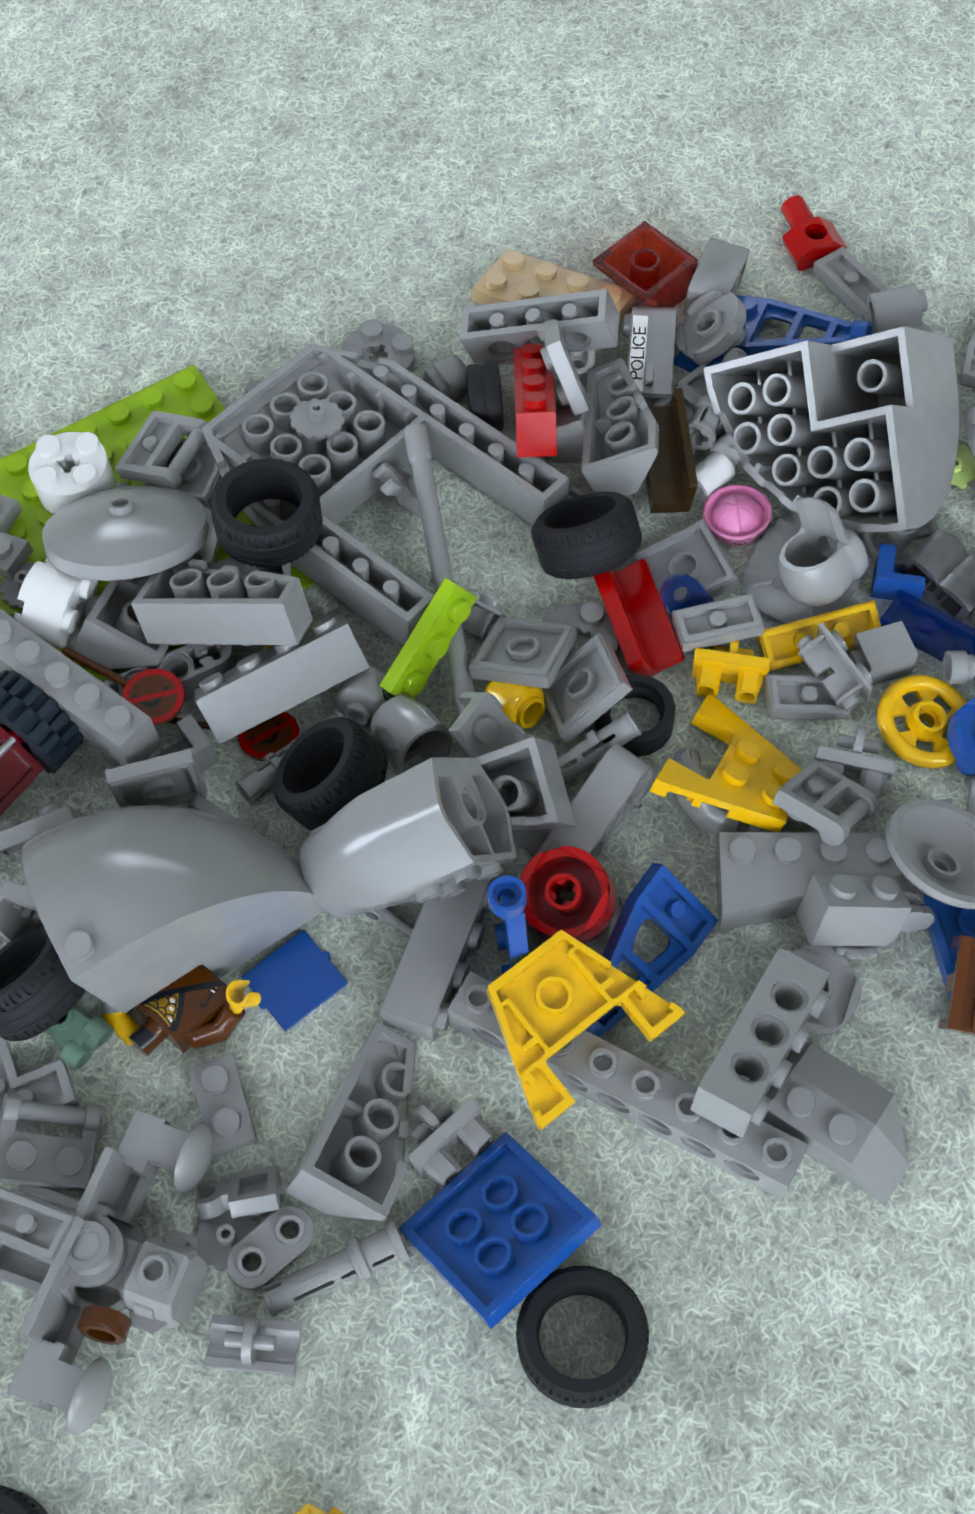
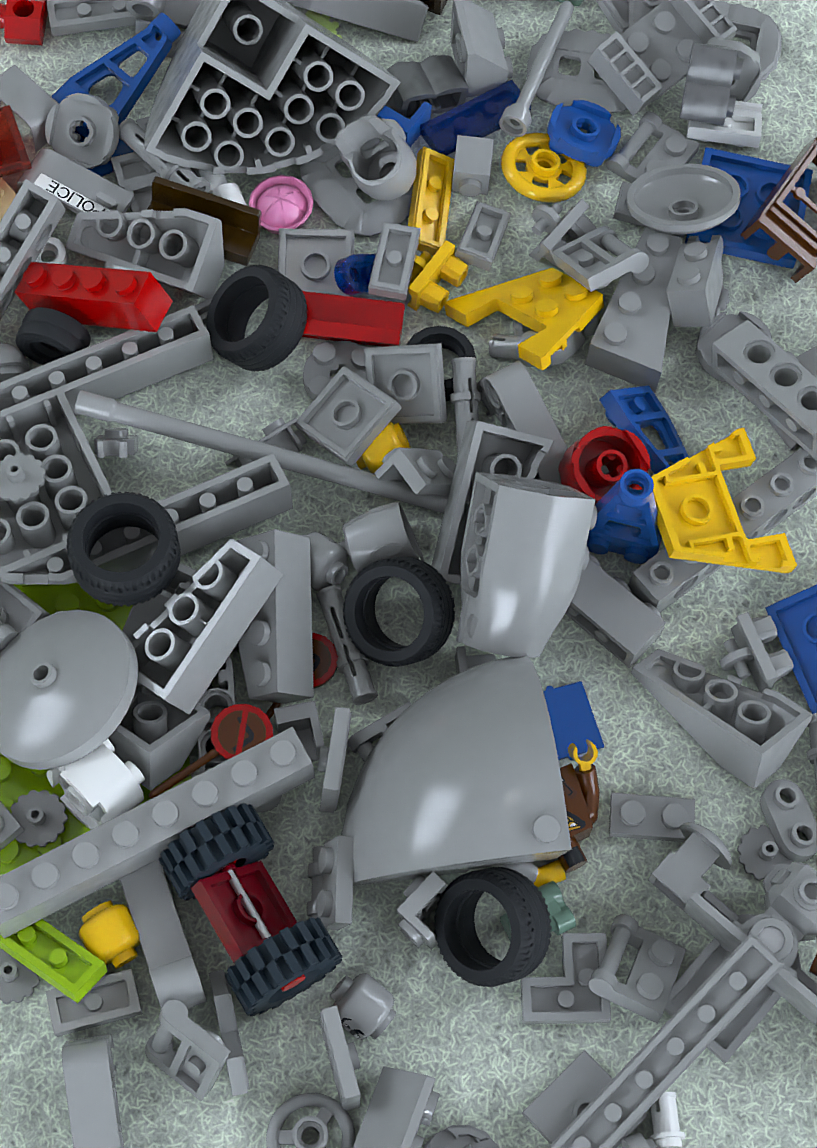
camera: 75 degrees left, 5 degrees up
(246, 1194) = (740, 819): light grey plate -> none
(428, 640) = (310, 478): lime plate -> none
(557, 357) = (72, 250): light grey plate -> none
(848, 679) = (458, 199): light grey hinge -> none

